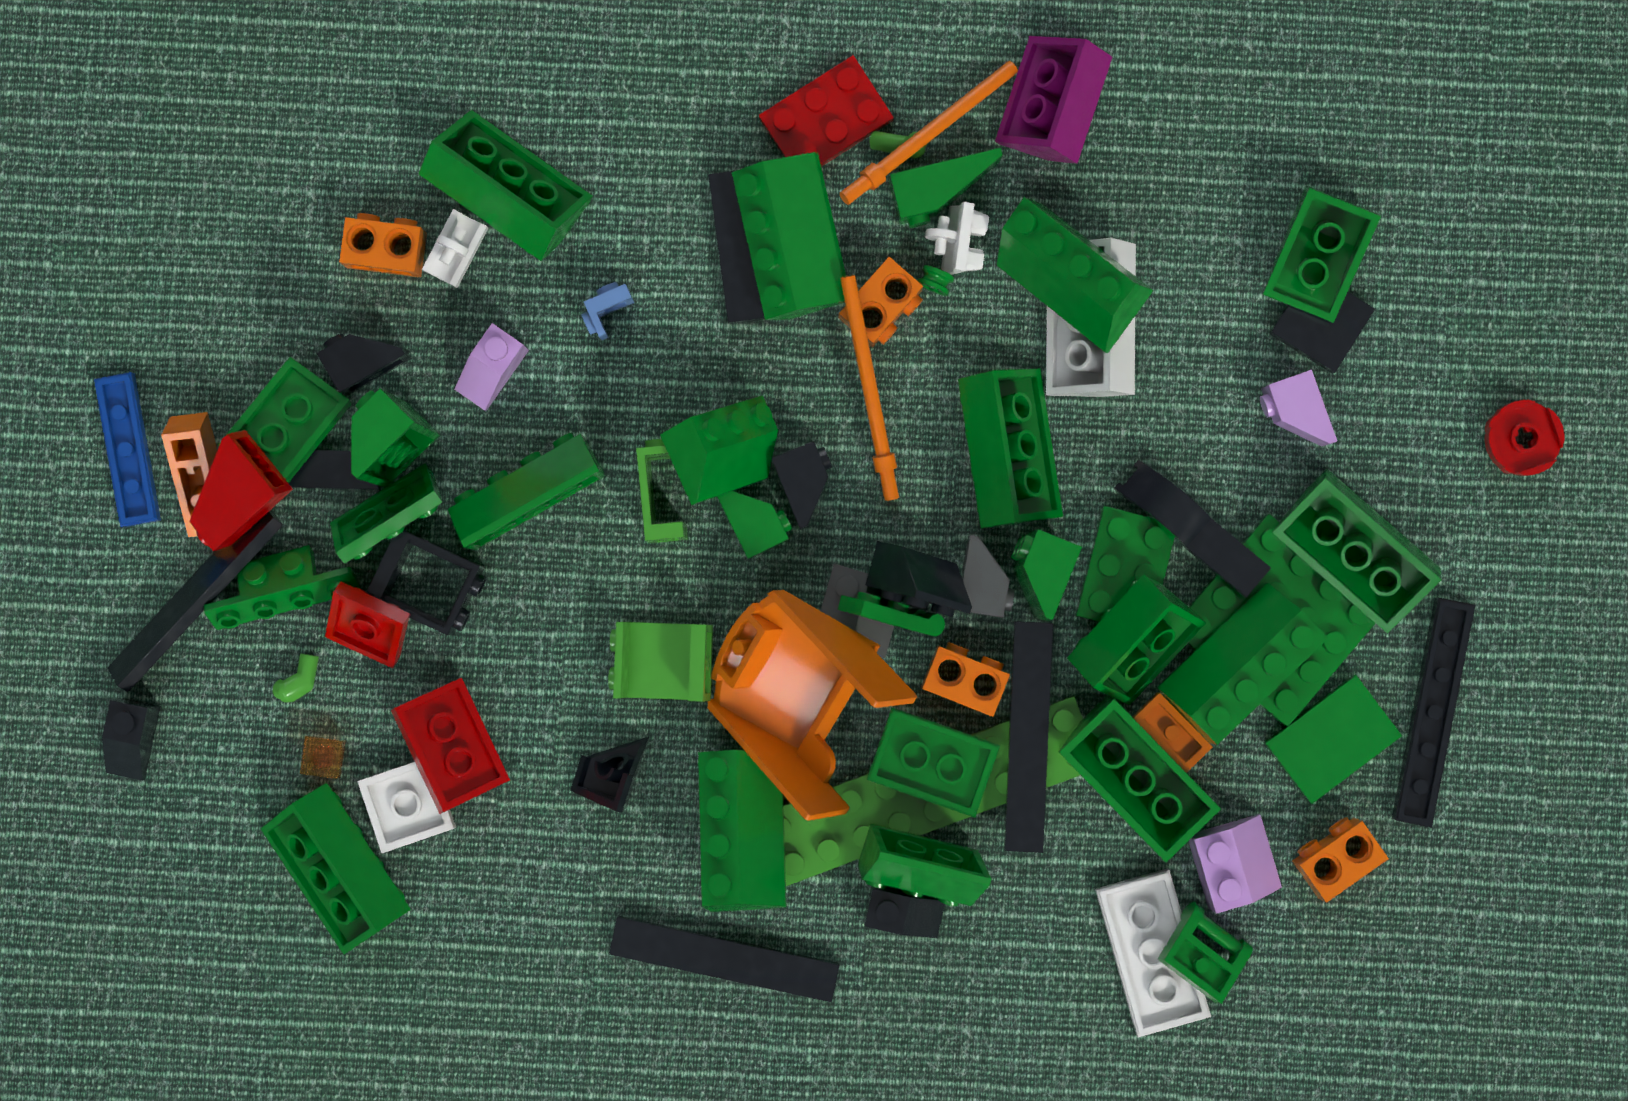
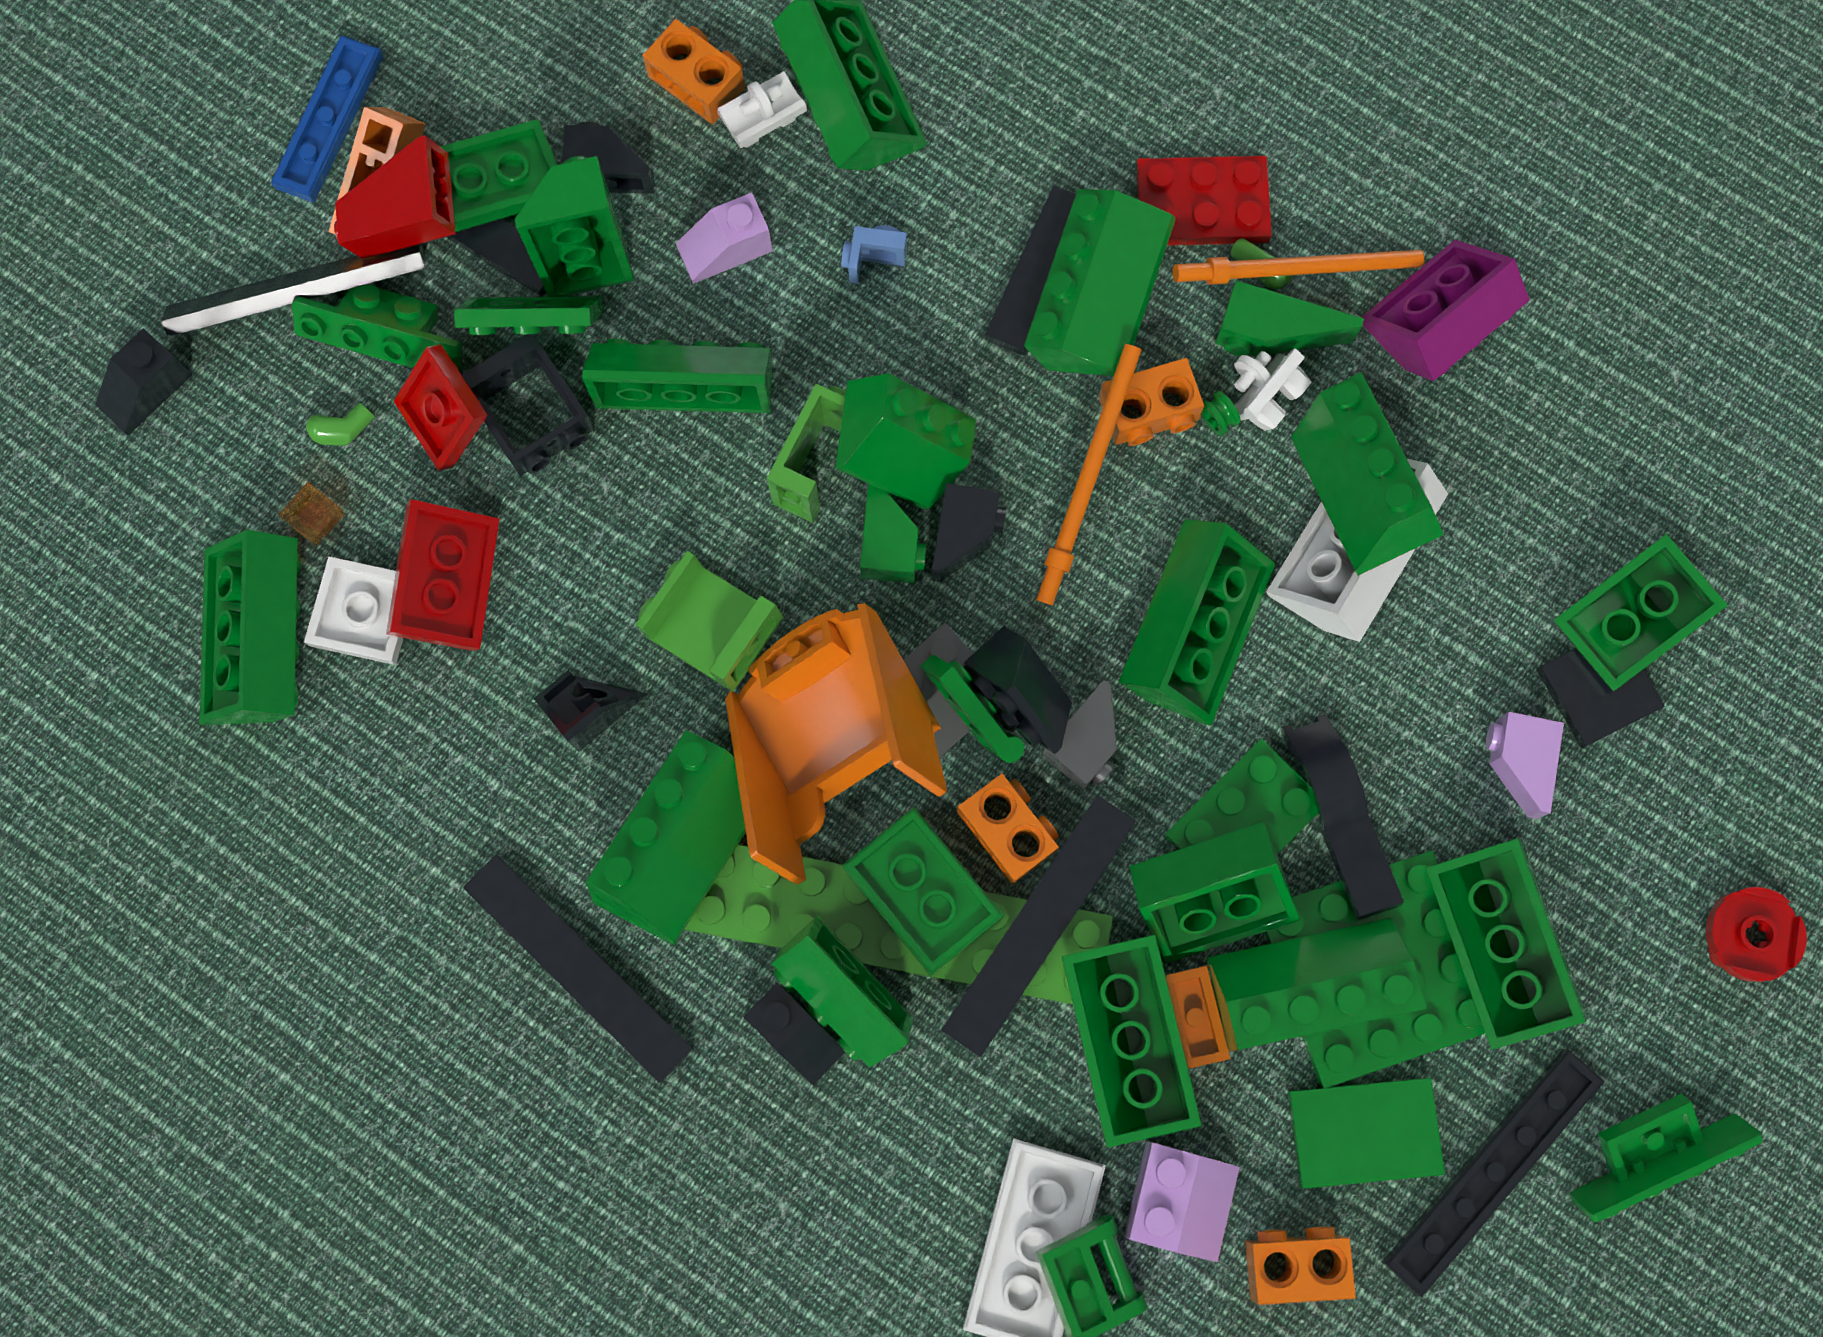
camera: 30 degrees right, 10 degrees down
(1044, 570) = (1163, 749): green slope -> none
(1538, 633) = (1659, 1152): none -> green bracket

